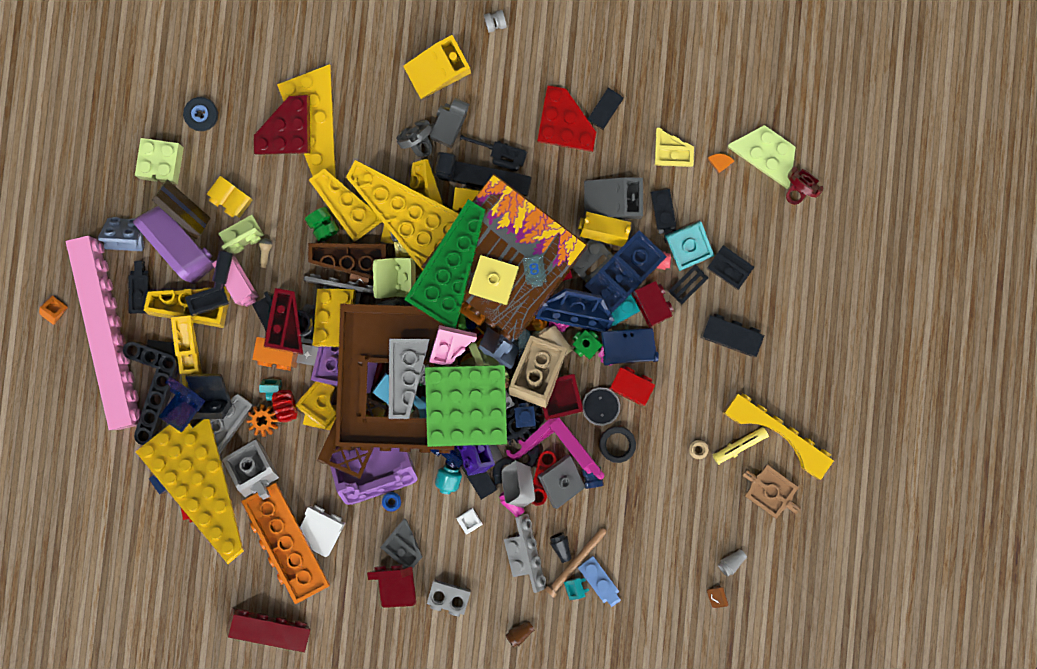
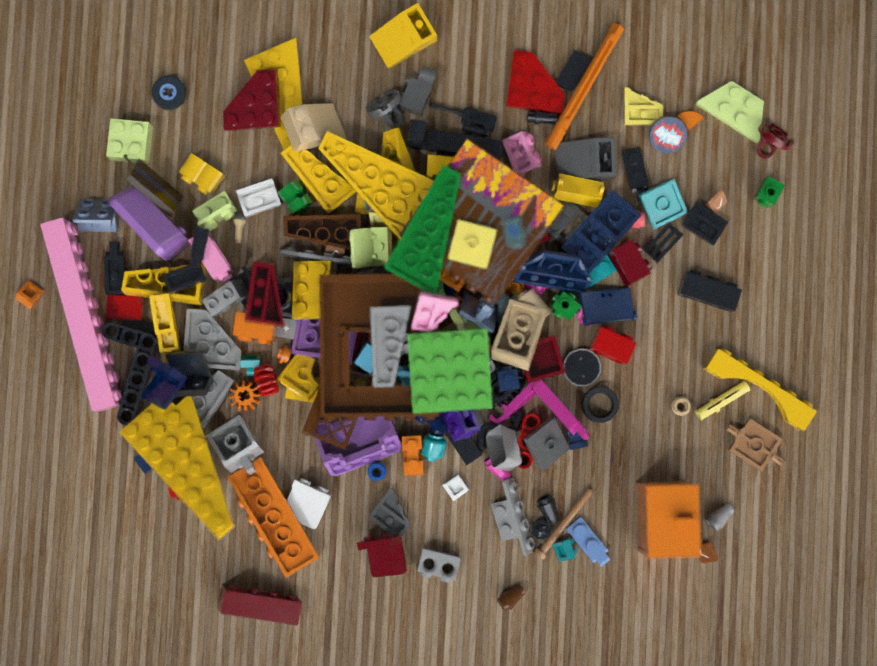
camera: 10 degrees left, 0 degrees up
(147, 327) = (124, 307): none -> red piece
(230, 361) = (205, 334): none -> light grey plate
(248, 321) = (226, 297): none -> light grey brick
(285, 223) = (258, 197): none -> white plate
(303, 380) = (283, 354): none -> orange plate
(339, 150) = (309, 123): none -> tan slope
(425, 481) = (412, 460): none -> orange brick
(551, 188) = (522, 152): none -> bright pink bracket
(552, 567) = (540, 529): none -> black tile
(571, 154) = (541, 117): none -> black pin
(616, 124) = (584, 86): none -> orange piece
(679, 563) = (669, 519): none -> orange piece
(697, 176) = (667, 134): none -> tile
(744, 246) = (716, 202): none -> nougat slope
(796, 239) = (768, 192): none -> green brick

